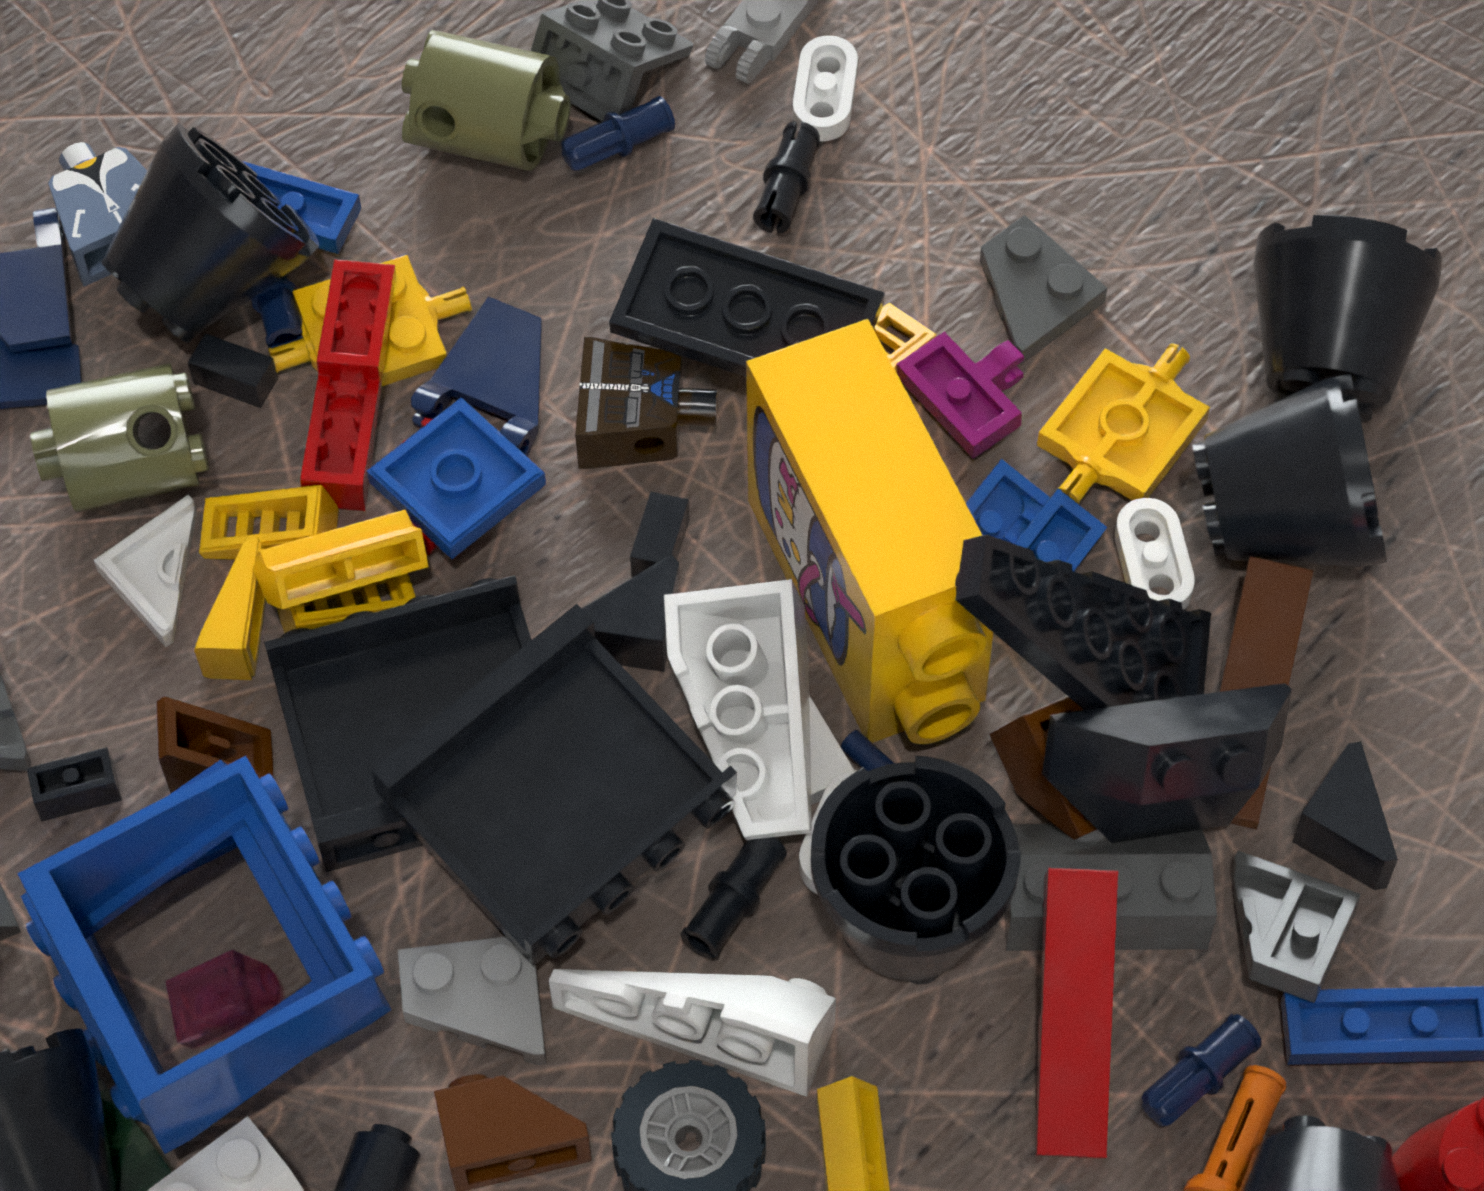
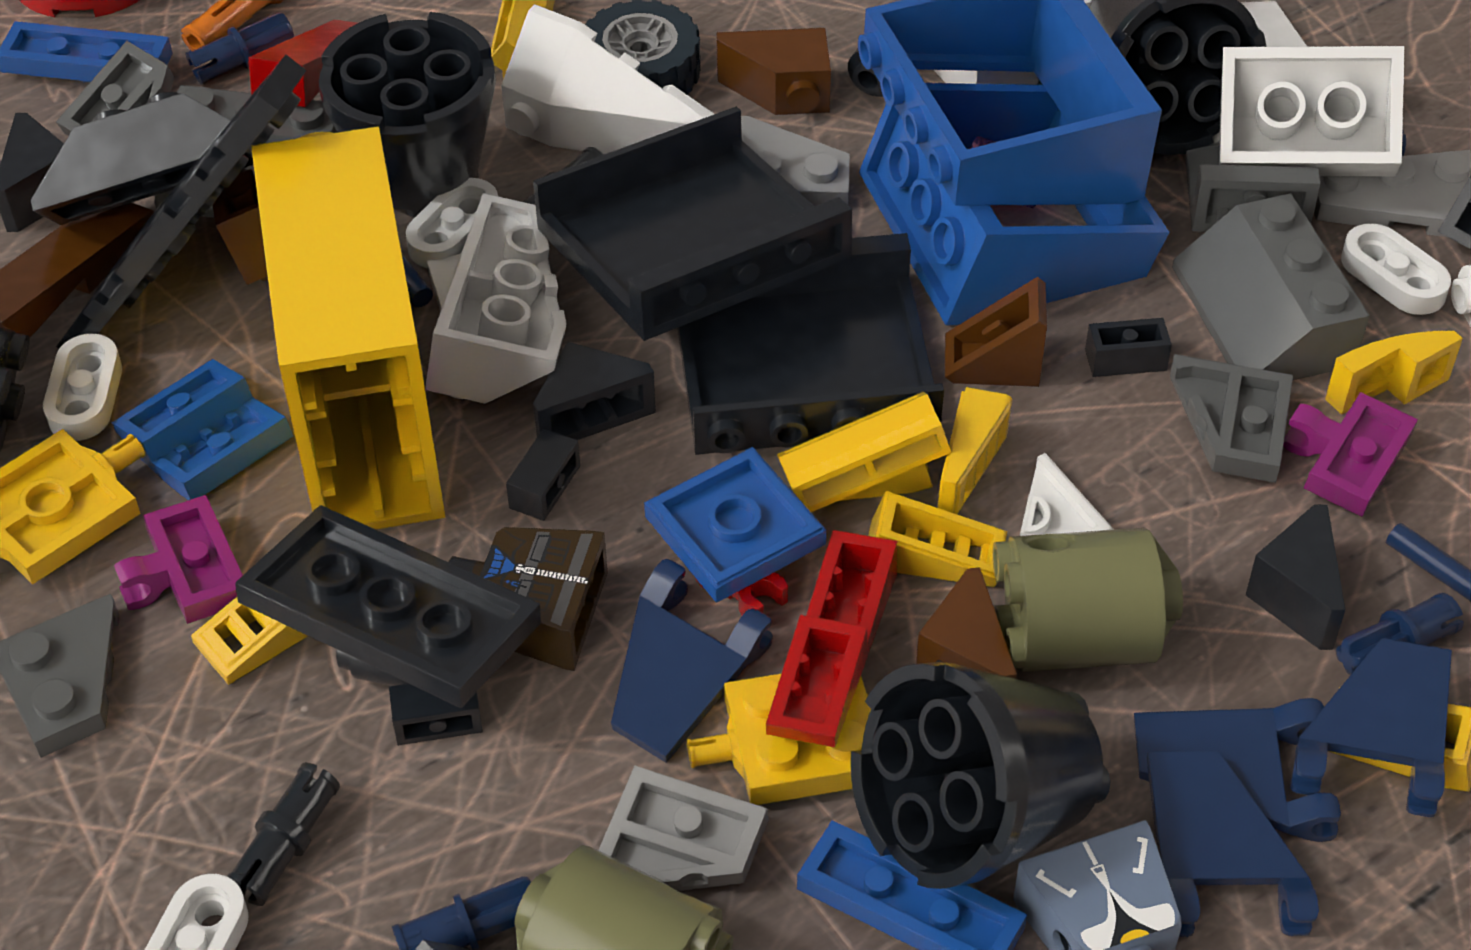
camera: 170 degrees left, 10 degrees down
(235, 410) = (966, 630): none -> reddish brown slope
(463, 221) = (684, 832): none -> light grey wing

